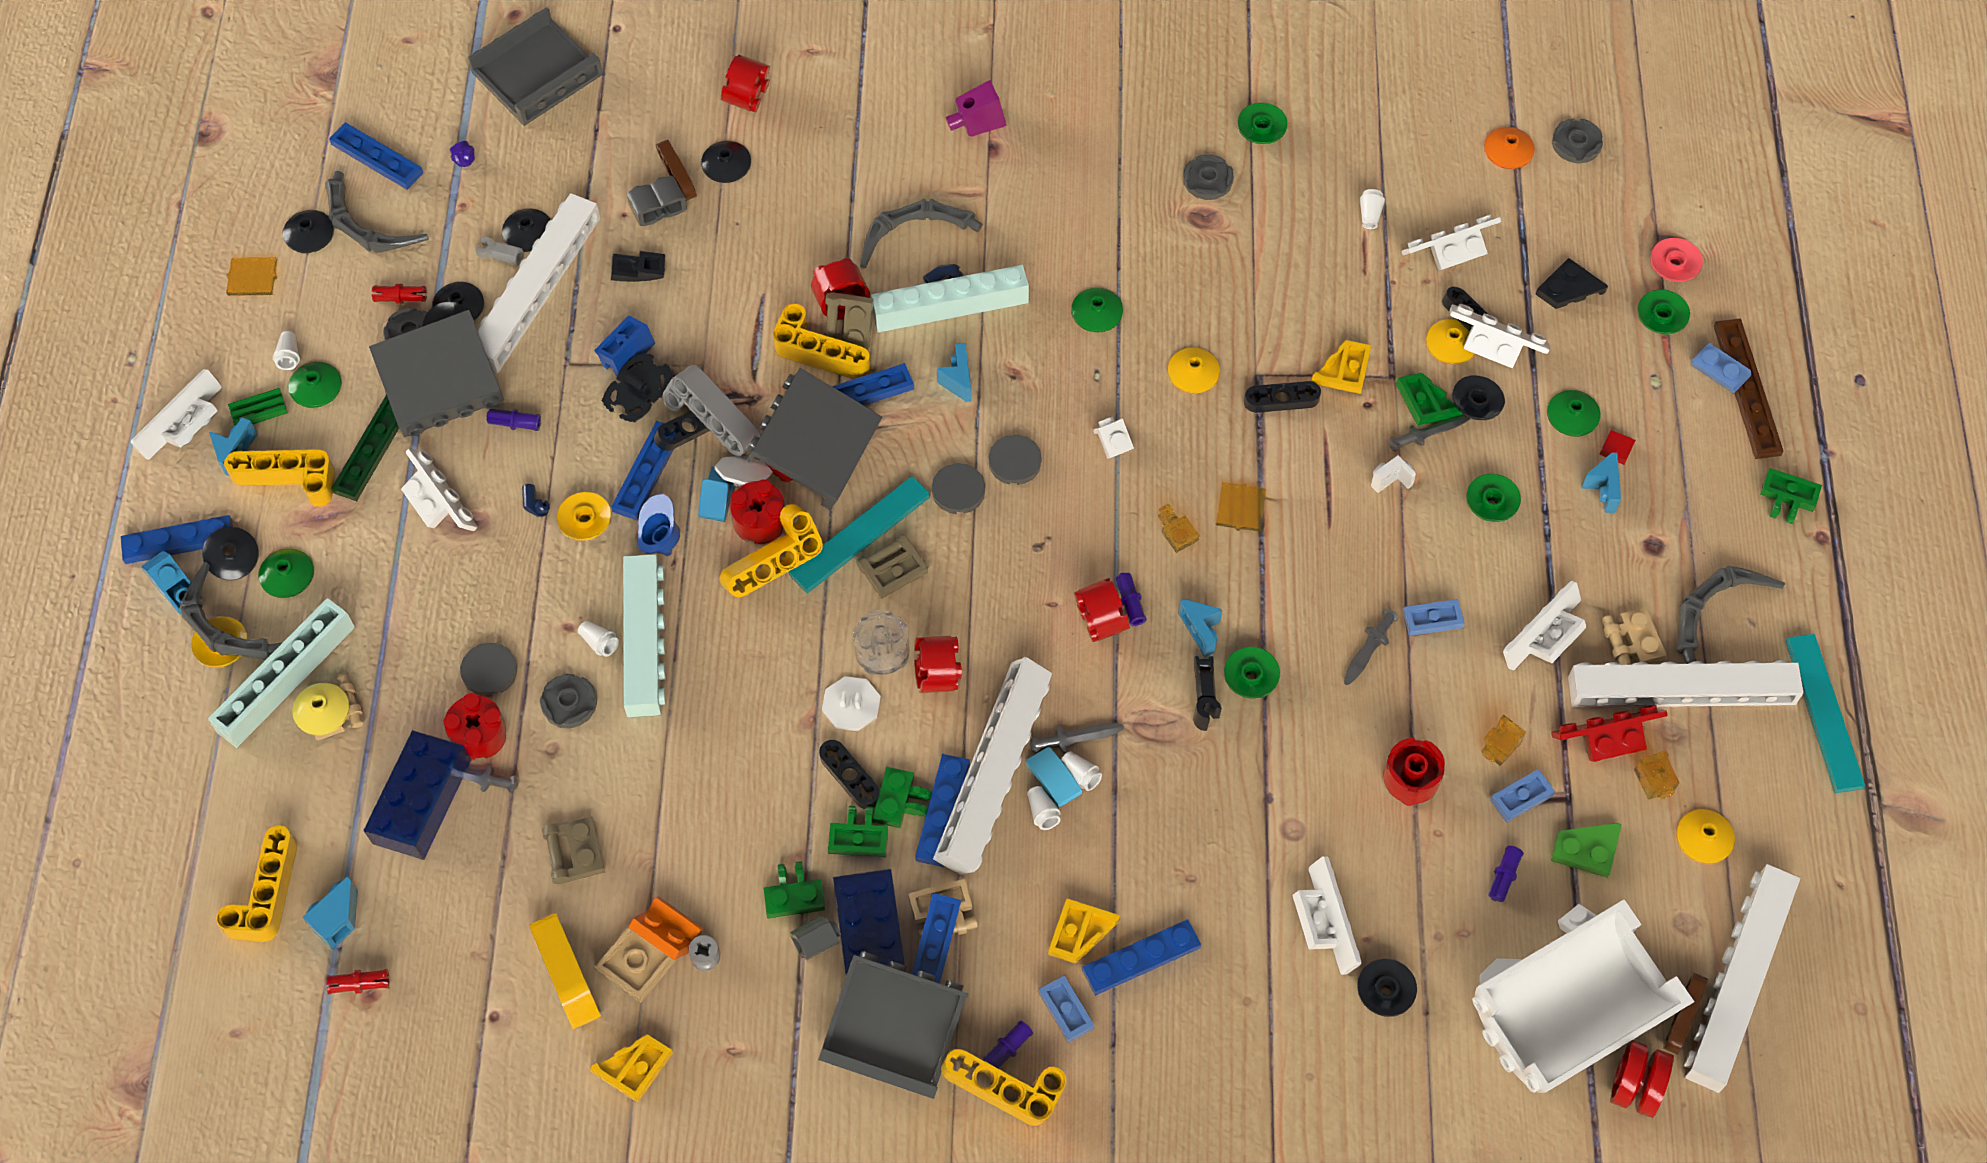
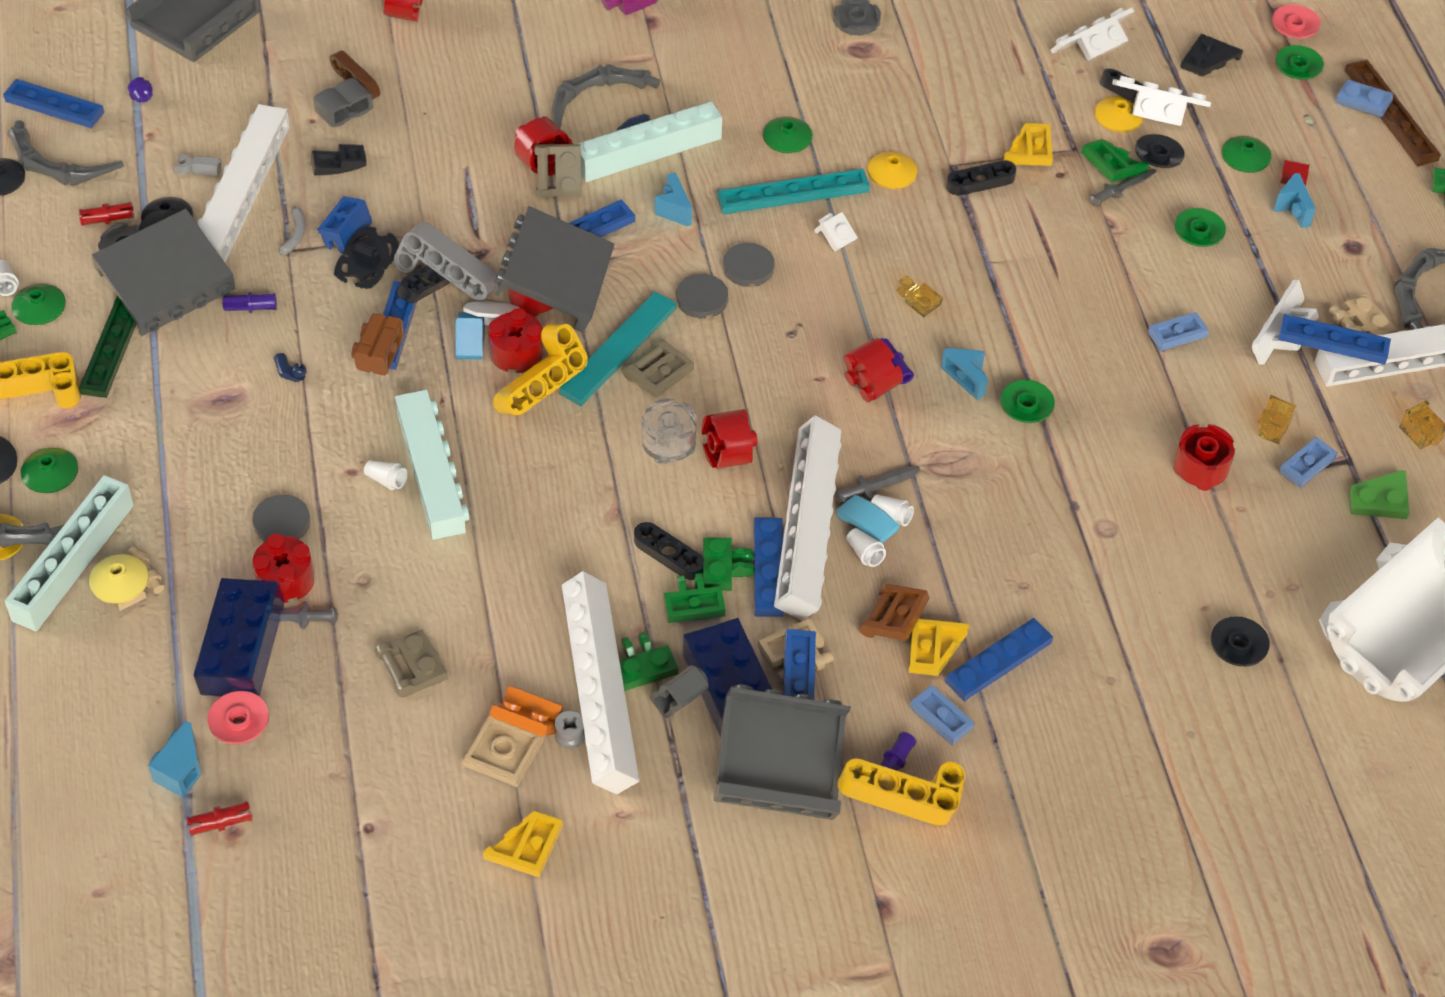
camera: 15 degrees left, 10 degrees down
(263, 884) = (98, 771): yellow beam -> none
(393, 868) = (234, 708): none -> coral dish
(432, 495) = (183, 379): white bracket -> none
(522, 236) = (218, 144): black dish -> none
(564, 971) = (436, 768): yellow beam -> none
(568, 701) = (369, 534): dark grey tile -> none
(579, 346) = (298, 233): none -> light grey piece
(583, 506) = (339, 373): yellow dish -> none
(621, 494) = (378, 344): none -> dark orange brick
(657, 526) = (421, 366): blue piece -> none
(726, 169) = (399, 65): black dish -> none
(742, 910) = (600, 684): none -> white brick
(851, 361) = (512, 198): yellow beam -> none
(851, 703) = (651, 491): white piece -> none
(1056, 891) = (901, 616): none -> dark orange plate
(1084, 379) = (793, 191): none -> teal tile
(1206, 695) = (995, 436): black piece -> none
(1241, 507) = (971, 272): clear yellow piece -> none
(1325, 917) = (1164, 592): white bracket -> none
(1371, 207) = (1013, 18): white cone -> none
(1375, 637) = (1130, 358): flat silver sword -> none
(1395, 469) = (1104, 219): white bracket -> none
(1505, 873) = (1315, 528): dark purple axle -> none
(1588, 663) = (1334, 339): none -> blue plate
(1612, 736) = (1372, 402): red bracket -> none

